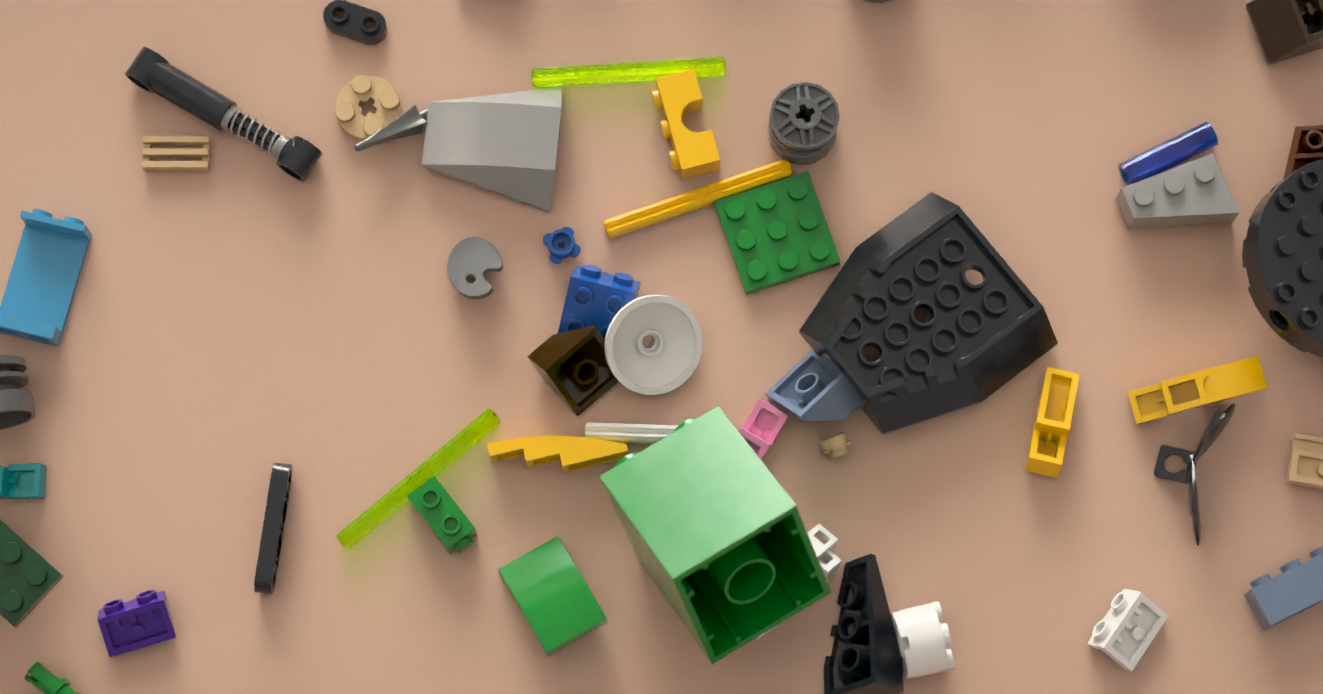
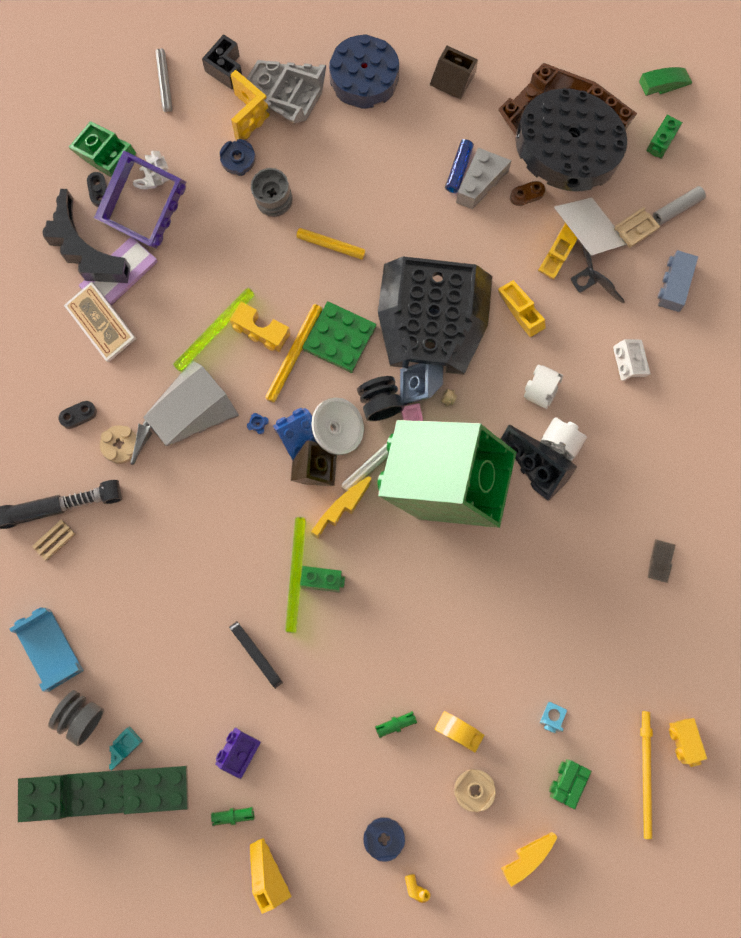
camera: 45 degrees left, 0 degrees up
(473, 259) = (227, 463): piece -> none
(553, 596) = (399, 566): green slope -> none
(743, 356) = (380, 398): none -> black wheel
(792, 137) = (307, 282): dark grey wheel -> none
(890, 99) = (330, 243): none -> yellow axle
(968, 548) = (543, 386): none -> white brick
(1224, 280) = (528, 193): none -> reddish brown plate
(1254, 400) = (590, 225): none -> white sticker

